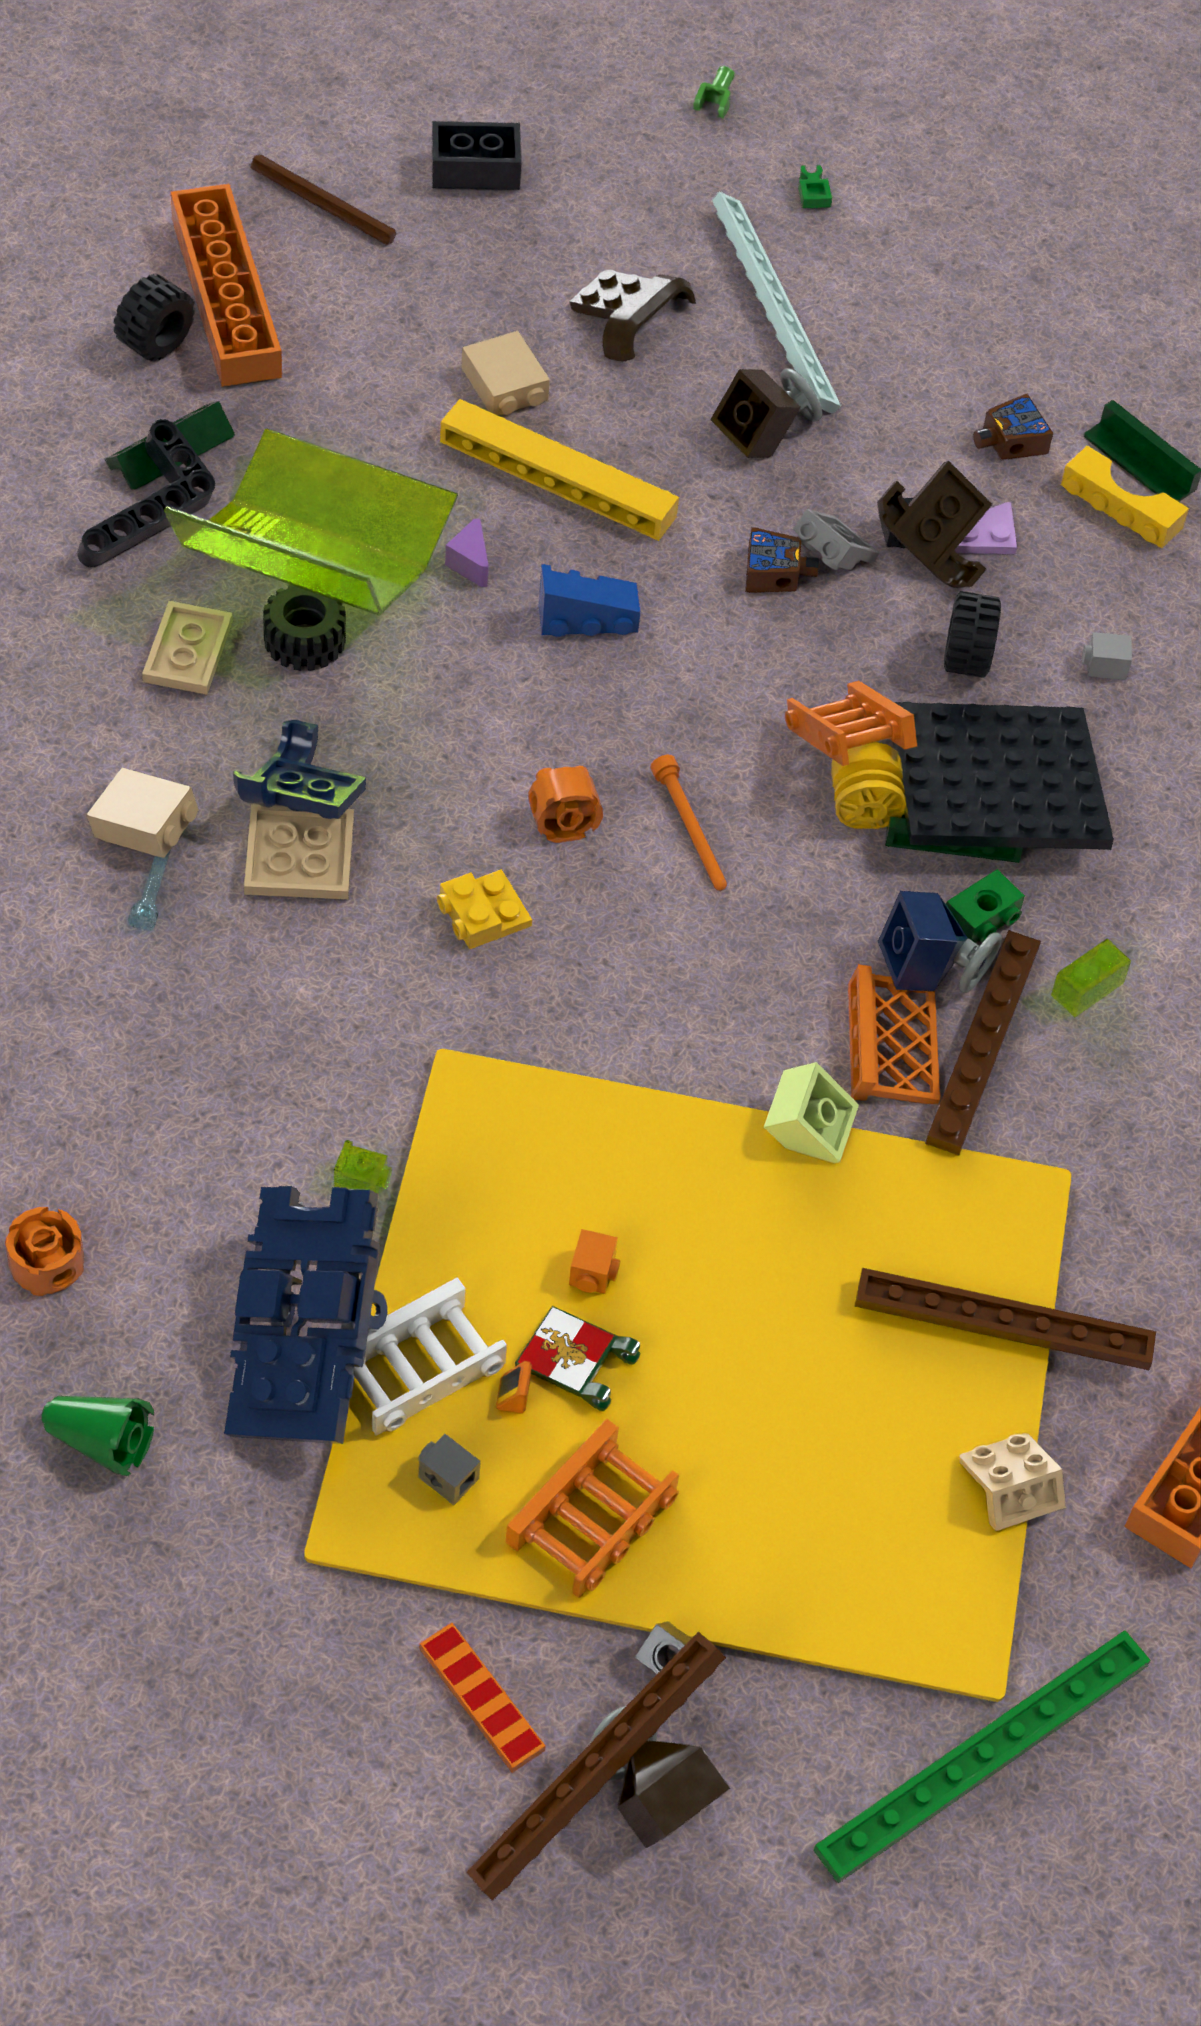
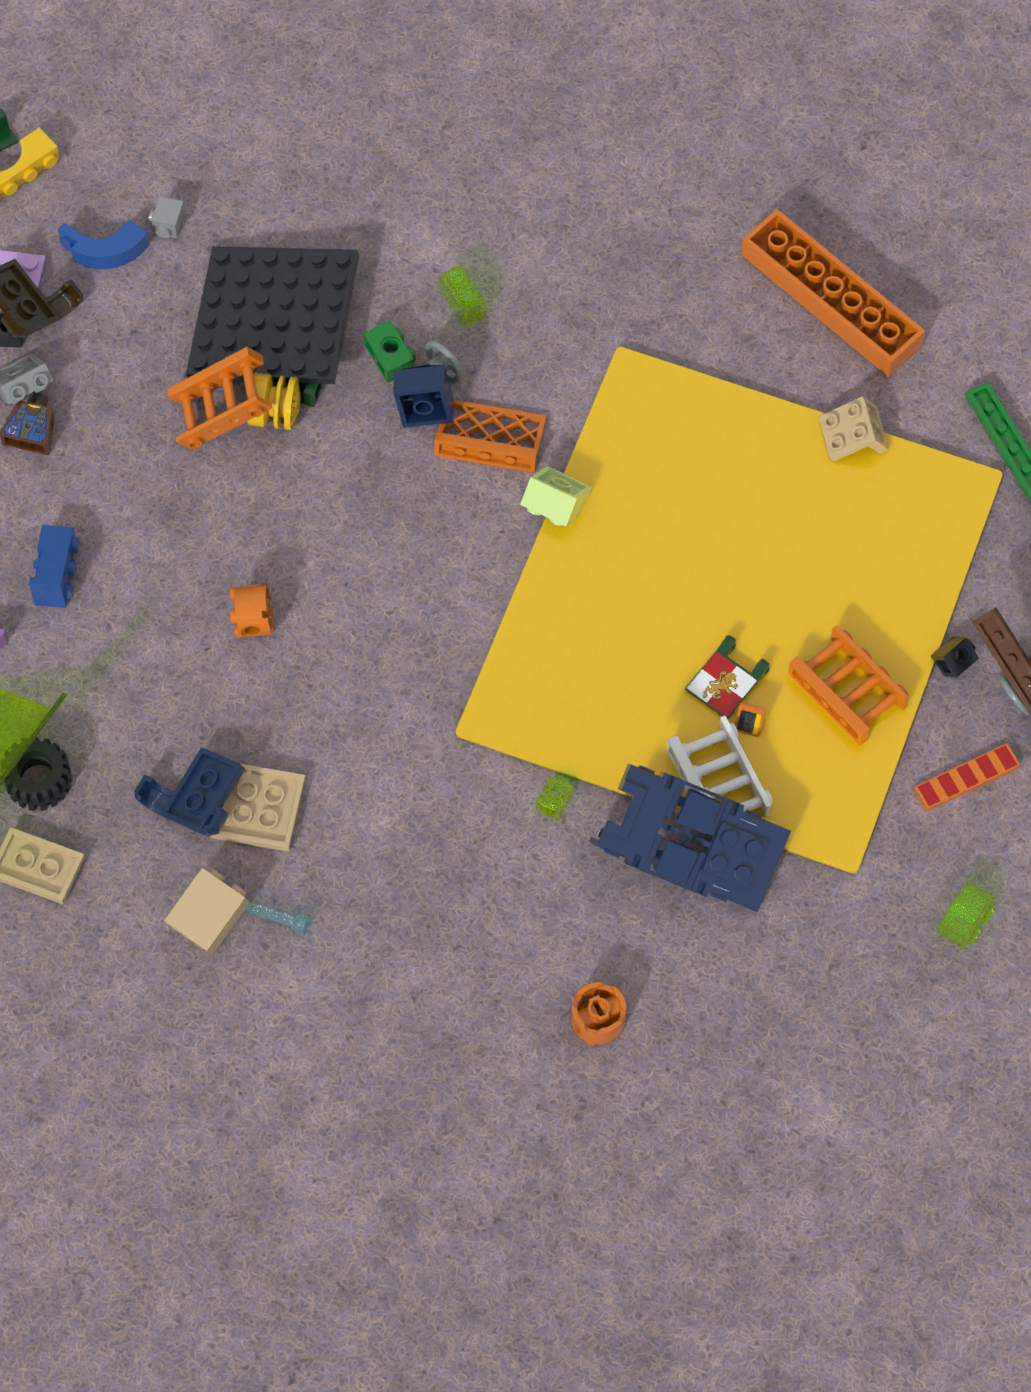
camera: 75 degrees left, 10 degrees up
(102, 1428) = (747, 989): green cone -> none
(251, 1711) = (966, 915): none -> clear neon green brick
(448, 1468) = (808, 769): dark grey brick -> none
(482, 908) = (331, 685): yellow plate -> none
(594, 1262) = (659, 654): orange brick -> none
(667, 772) = (225, 539): orange piece -> none
(972, 634) = (142, 300): black tyre -> none
(983, 1043) = (509, 379): reddish brown plate -> none
(1006, 1319) = (734, 410): reddish brown plate -> none
(1042, 608) = (106, 252): none -> blue arch

